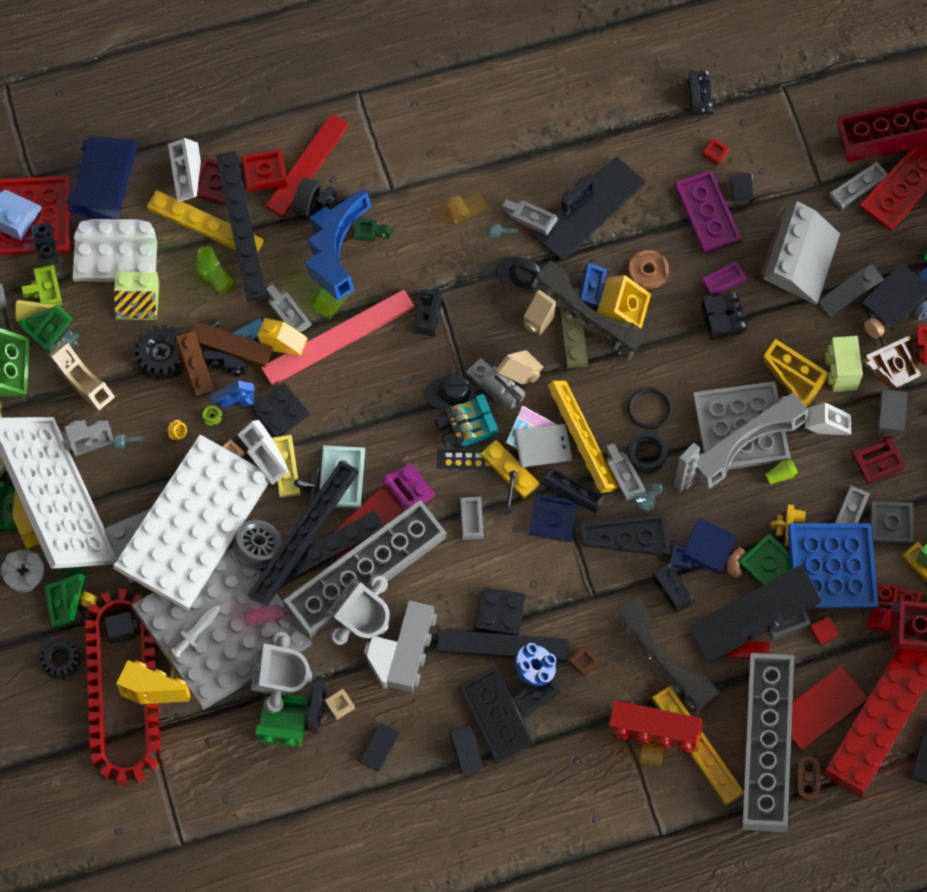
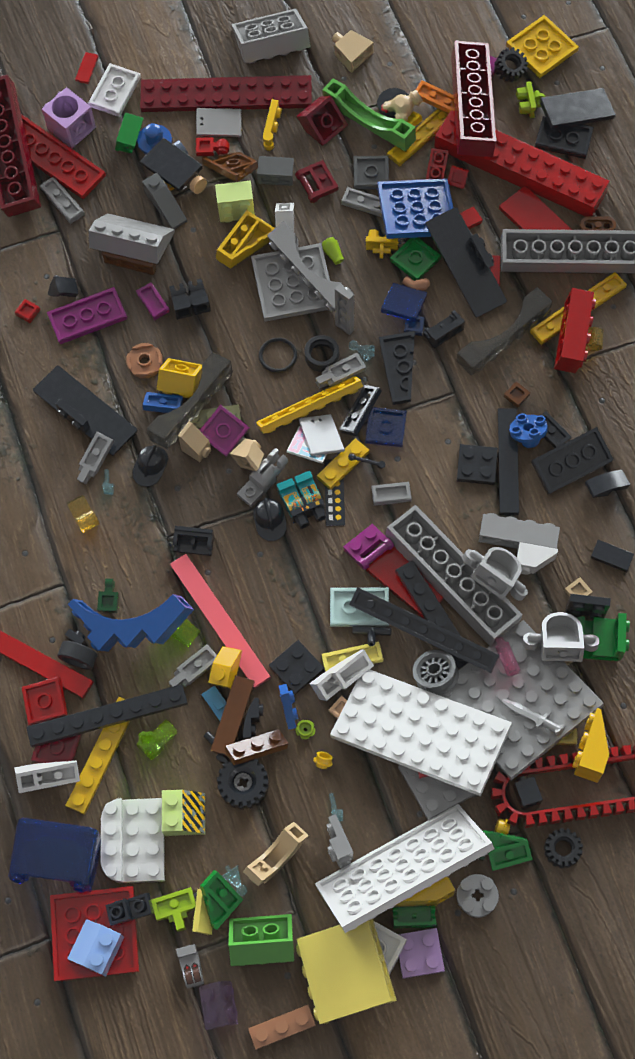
camera: 90 degrees left, 0 degrees up
(554, 345) = (224, 430): none -> magenta tile

